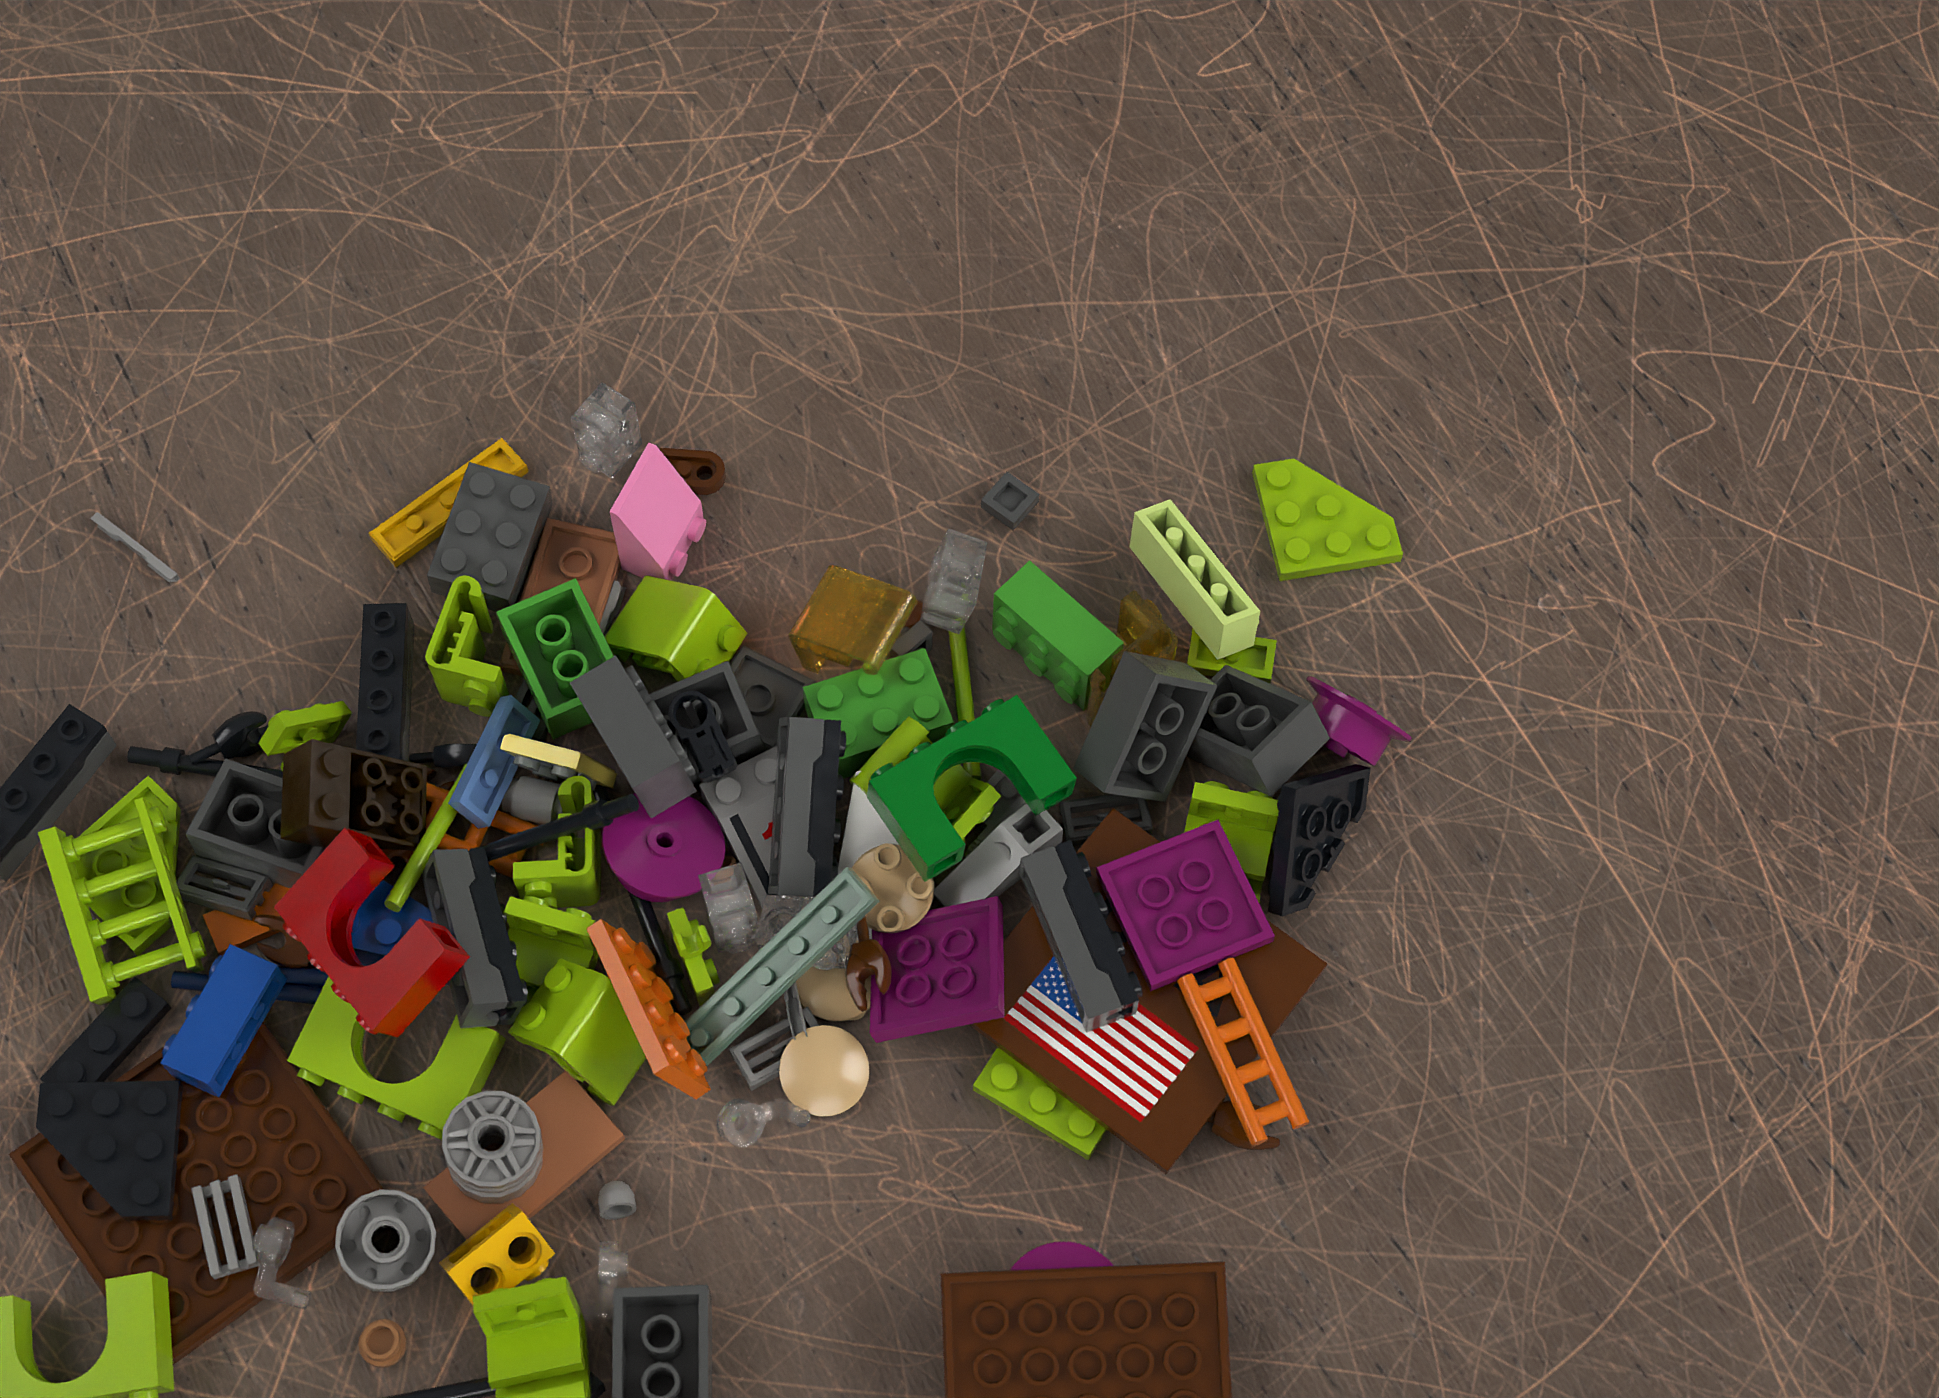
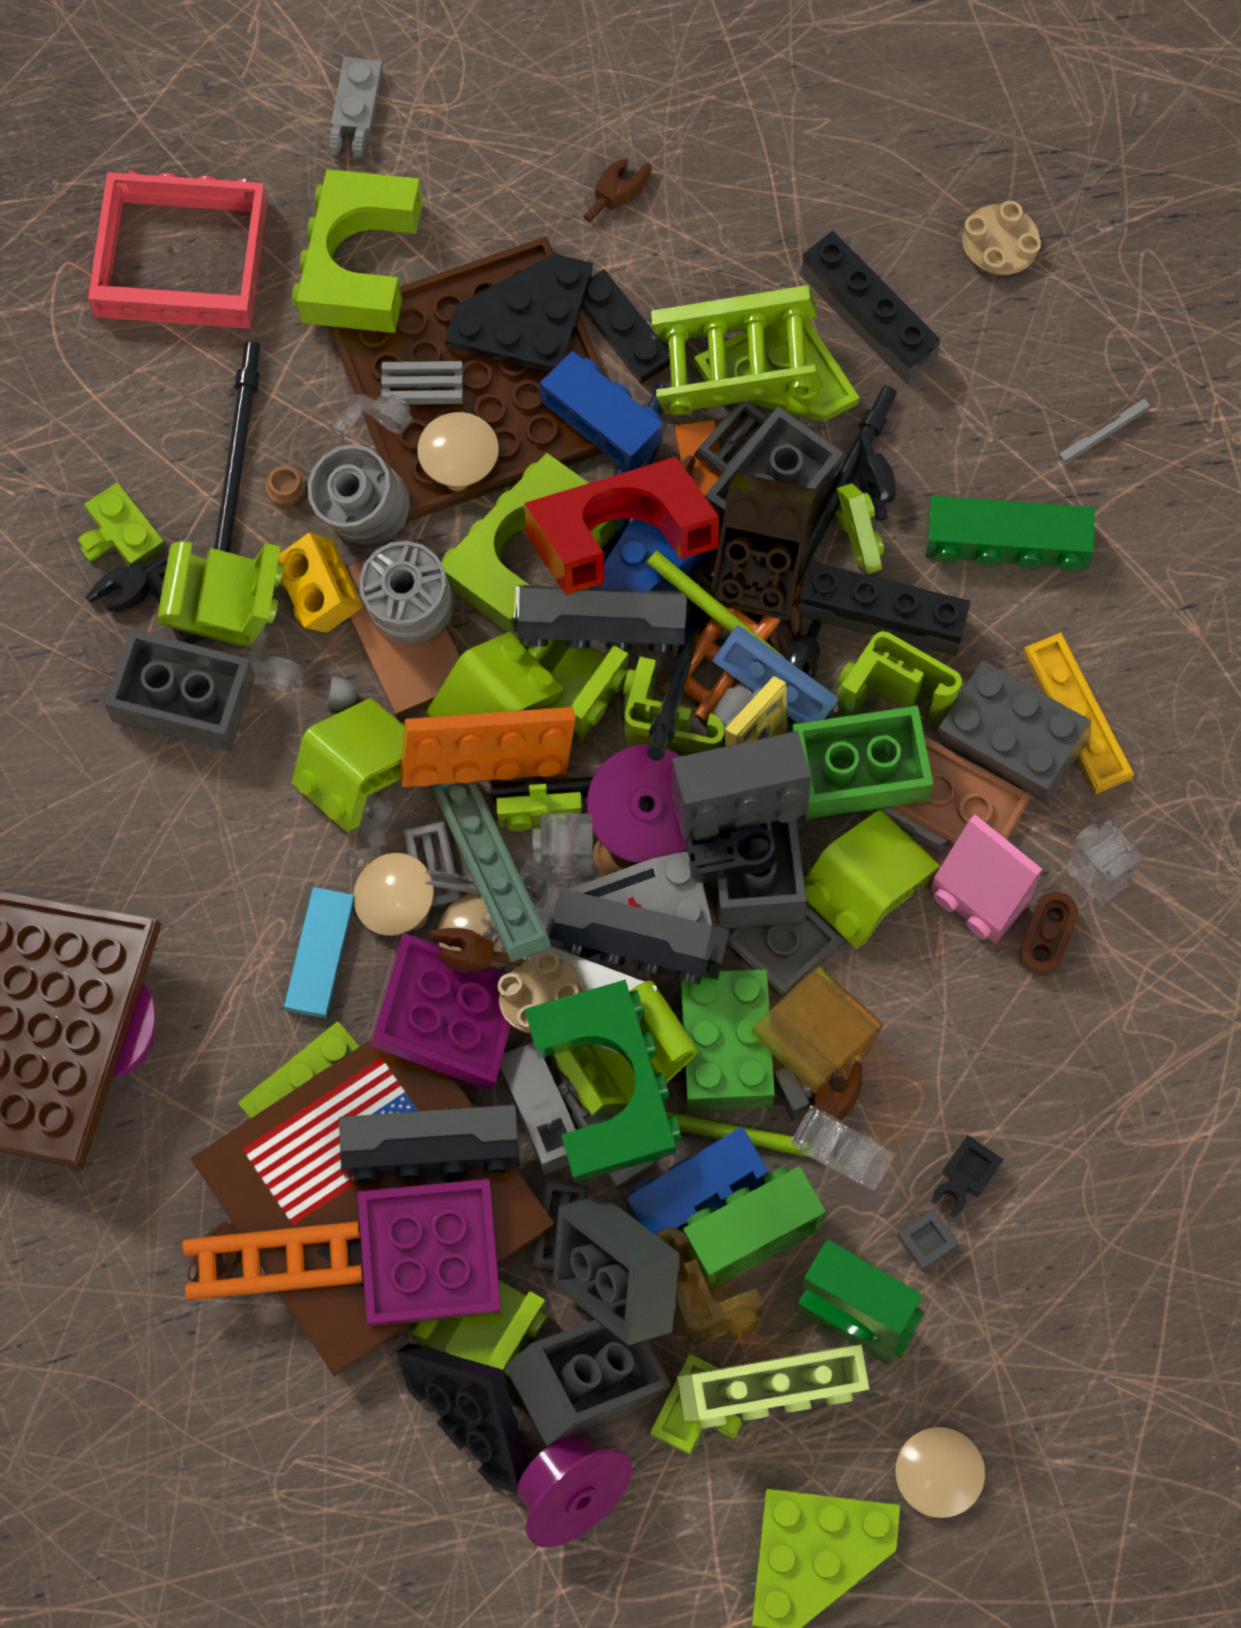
camera: 110 degrees right, 5 degrees up
(272, 600) = (1010, 532): none -> green brick
(300, 1161) = (458, 450): none -> tan dish
(693, 1150) = (348, 760): none -> lime piece
(905, 1129) = (319, 953): none -> medium azure tile
(933, 481) = (969, 1171): none -> black plate
(1007, 669) = (698, 1183): none -> blue wedge
(1104, 509) = (860, 1303): none -> green arch
(1212, 443) = (940, 1472): none -> tan dish

